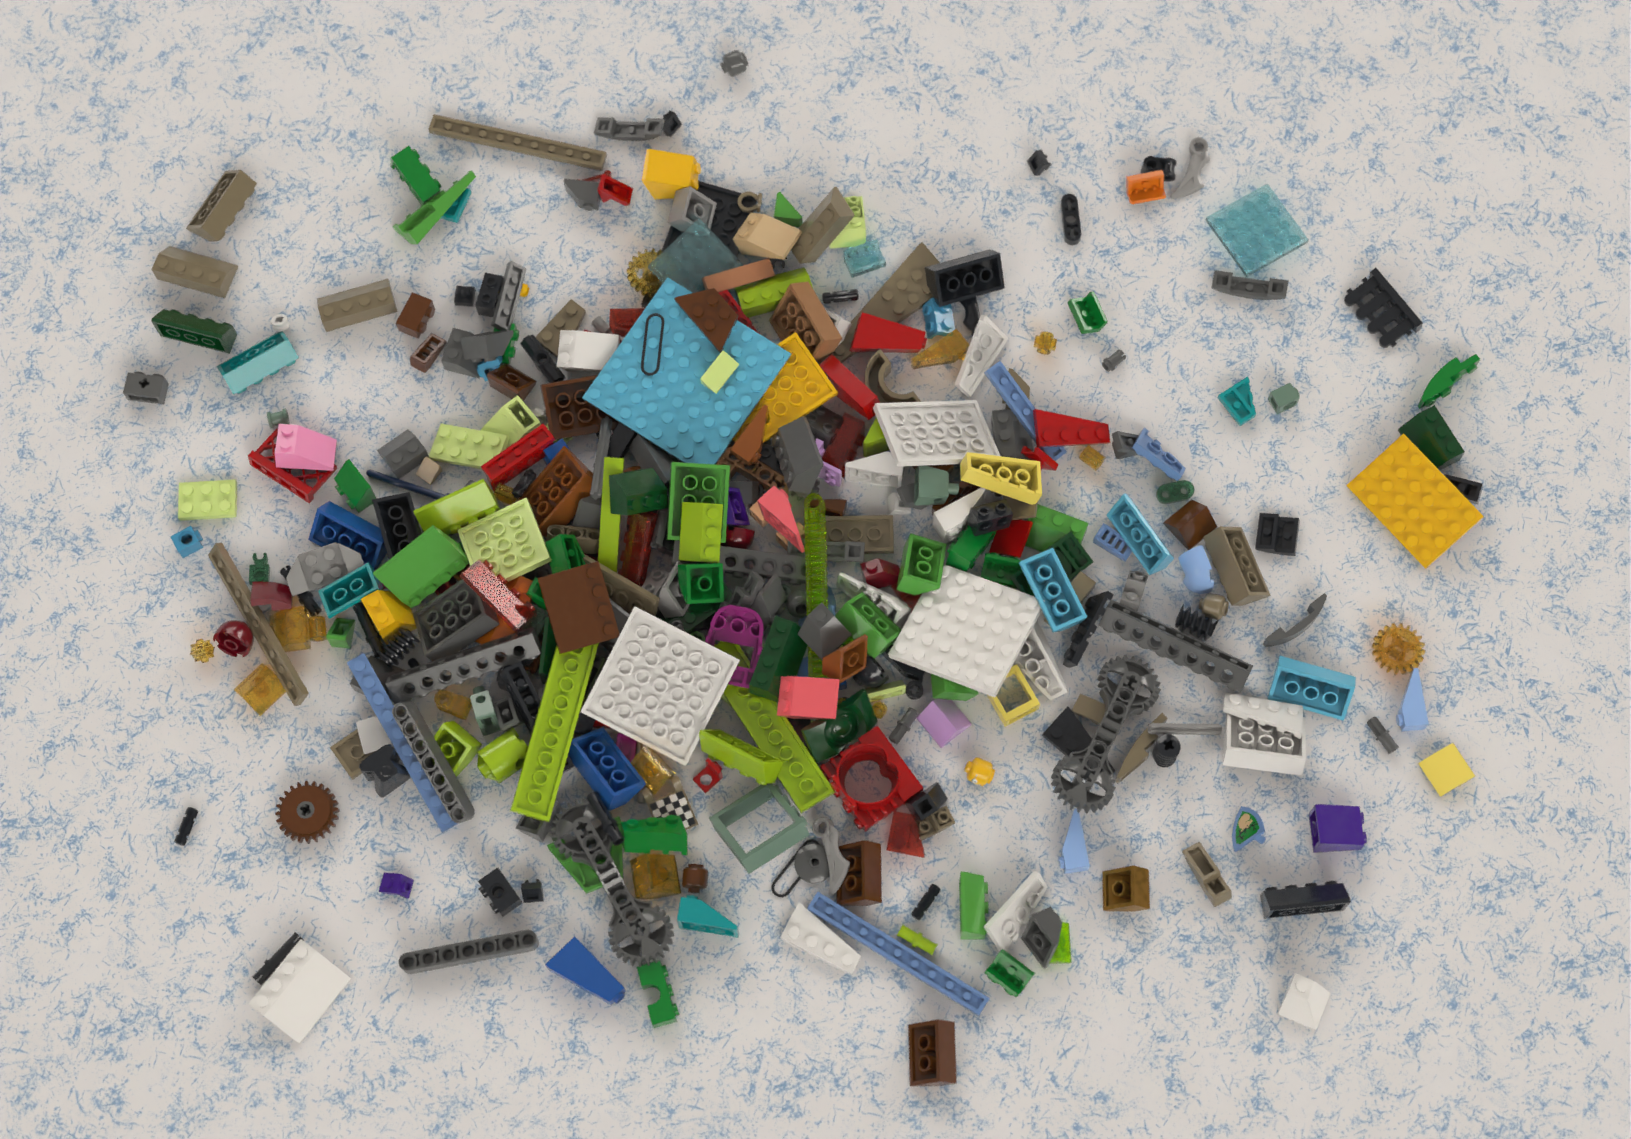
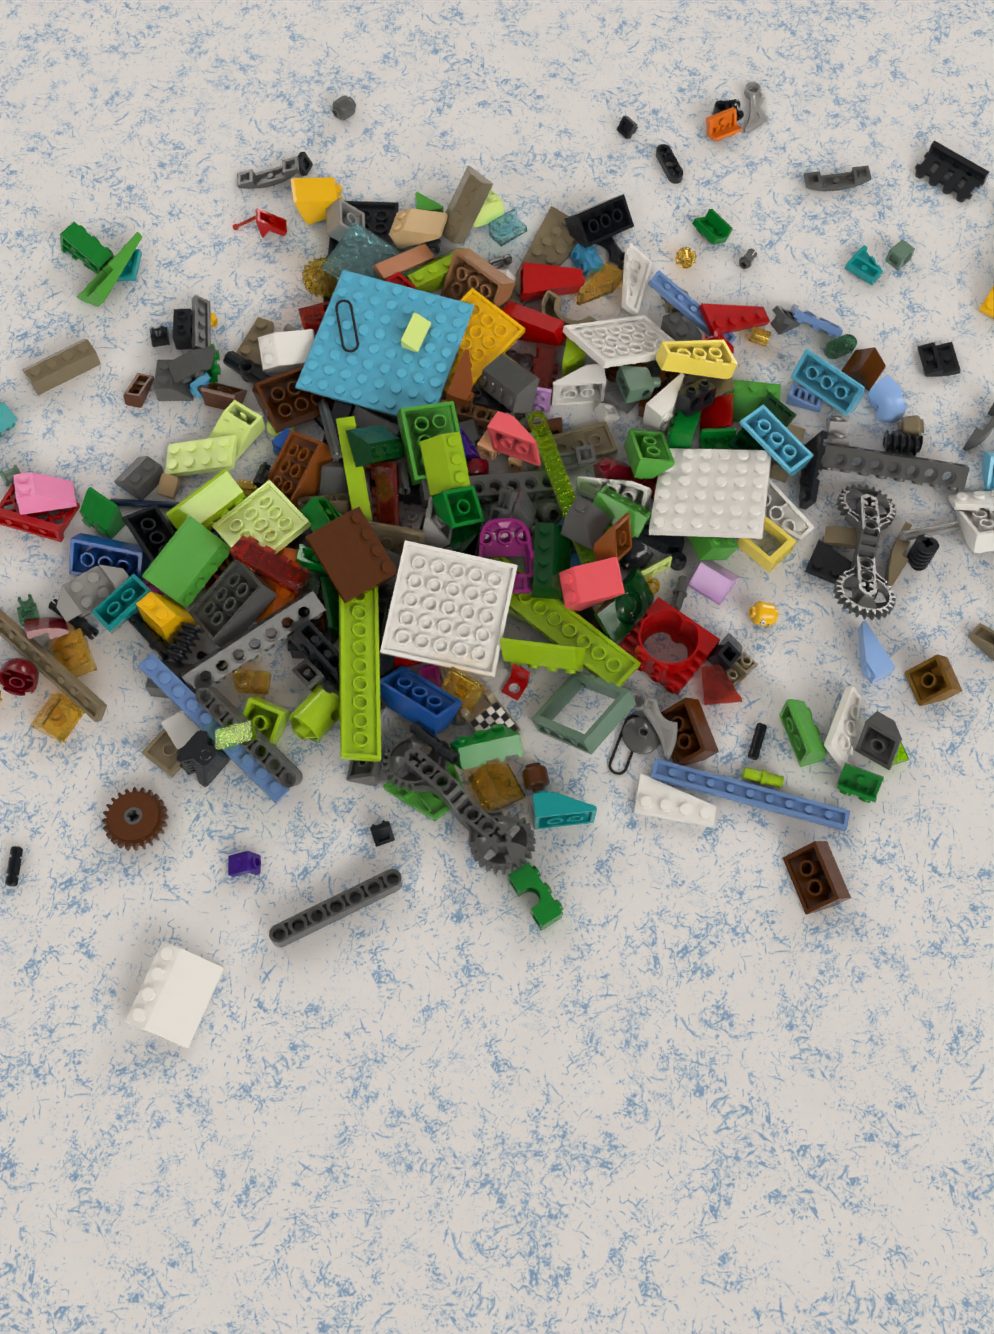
camera: 20 degrees left, 5 degrees down
(273, 963) = (141, 971): black pin -> none
(317, 628) = (99, 648): clear yellow piece -> none
(341, 633) = (124, 647): bright green slope -> none
(415, 315) = (119, 360): reddish brown brick -> none
(419, 759) = (235, 735): none -> clear neon green slope
(484, 711) = (282, 674): sand green torso -> none
(494, 881) = (344, 832): black brick -> none
(517, 142) = (171, 206): dark tan plate -> none
(518, 457) = (252, 445): red fence -> none
(583, 193) = (243, 232): dark grey slope -> none
(586, 972) = (458, 894): blue slope -> none
(710, 315) = (391, 288): reddish brown wing -> none
(756, 207) = (398, 201): dark tan piece -> none
(1236, 565) = (917, 392): dark tan slope -> none
(1256, 230) = (824, 138): clear light blue plate -> none

